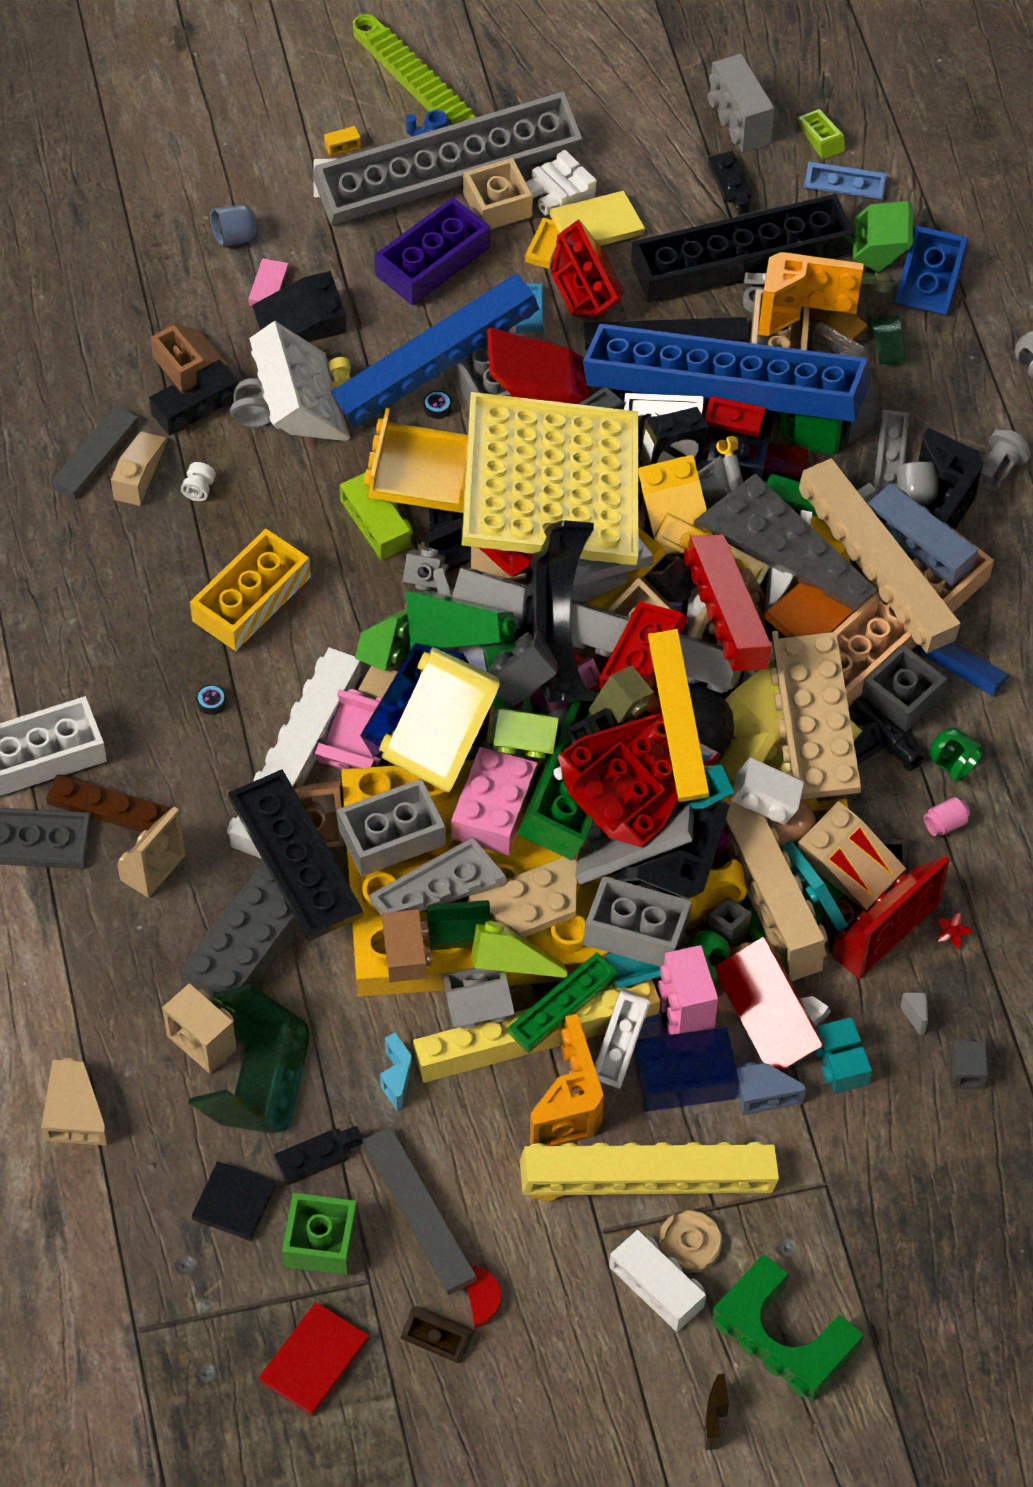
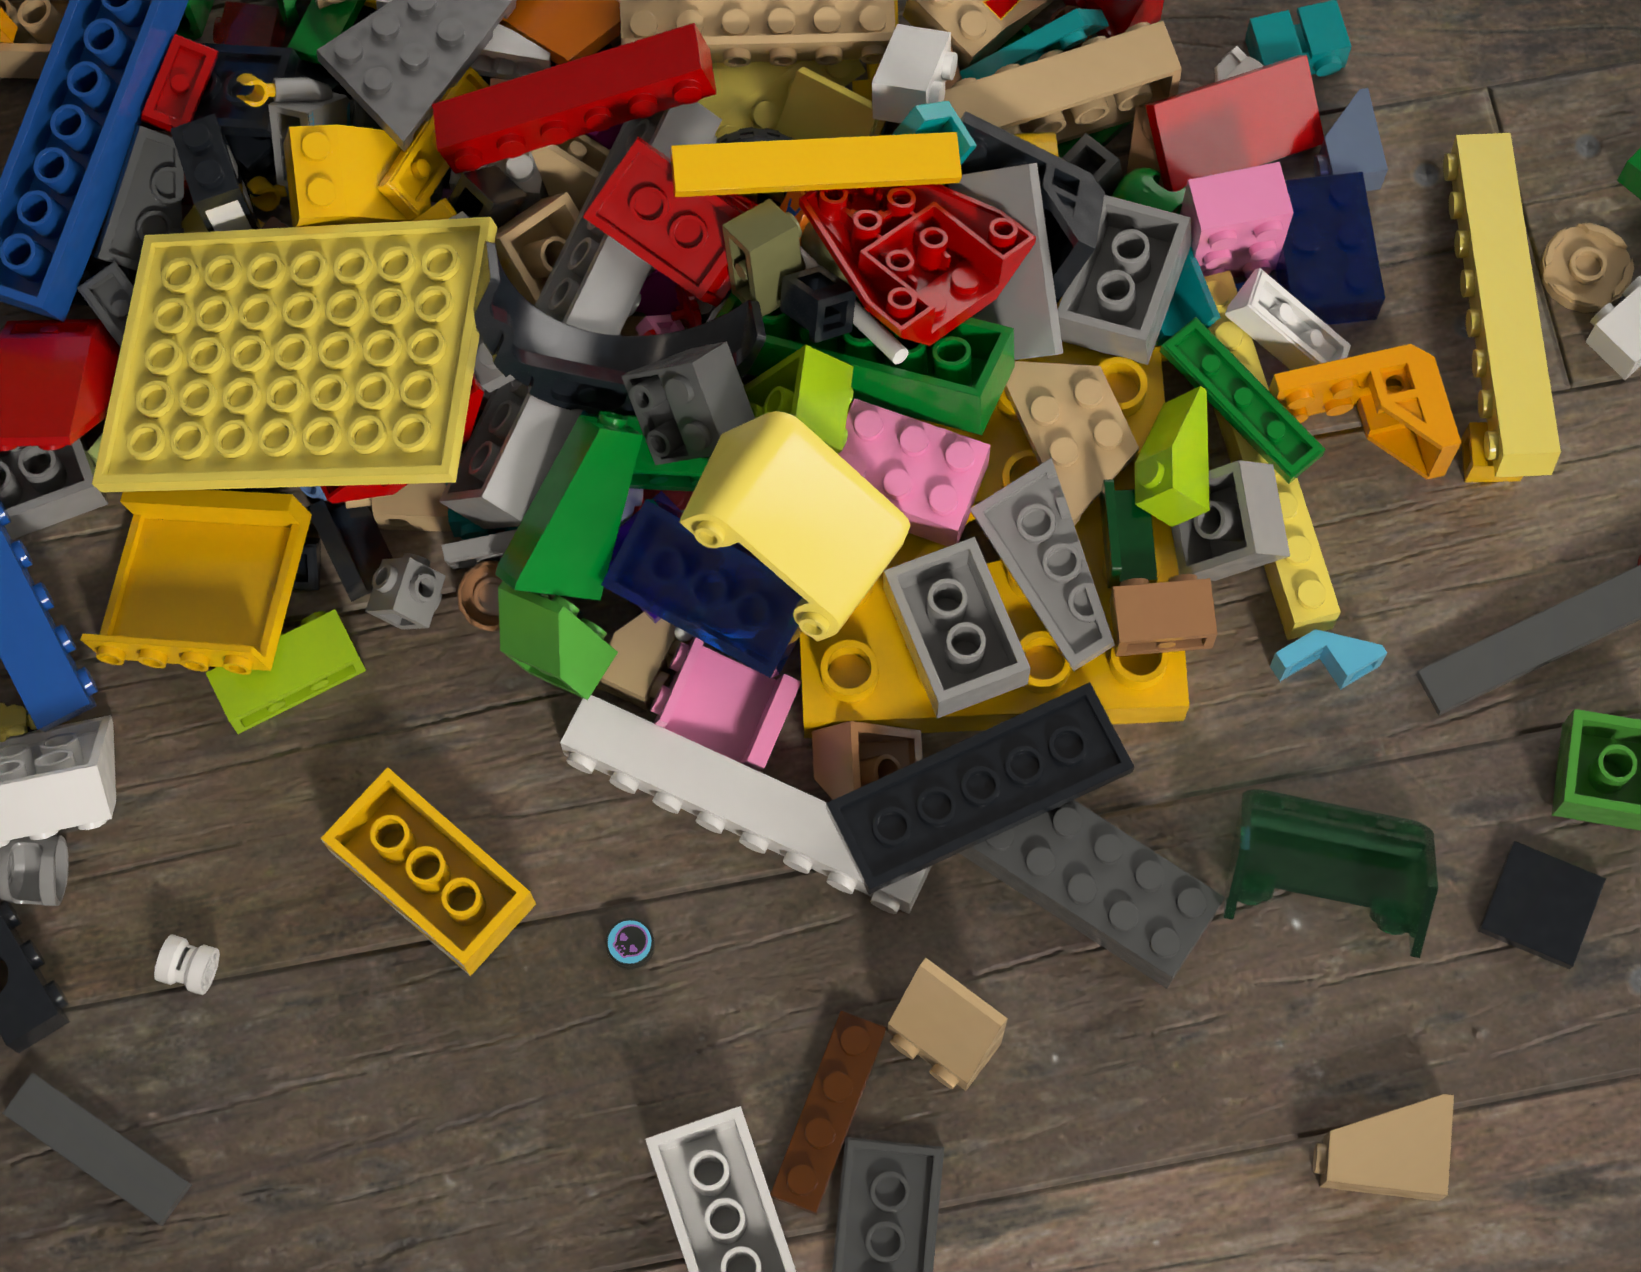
camera: 85 degrees left, 15 degrees up
(137, 468) = (139, 1068): tan slope -> none
(200, 1027) = (1266, 951): tan brick -> none
(317, 1154) = (1460, 781): black hinge -> none
(437, 404) = (58, 570): black tile -> none

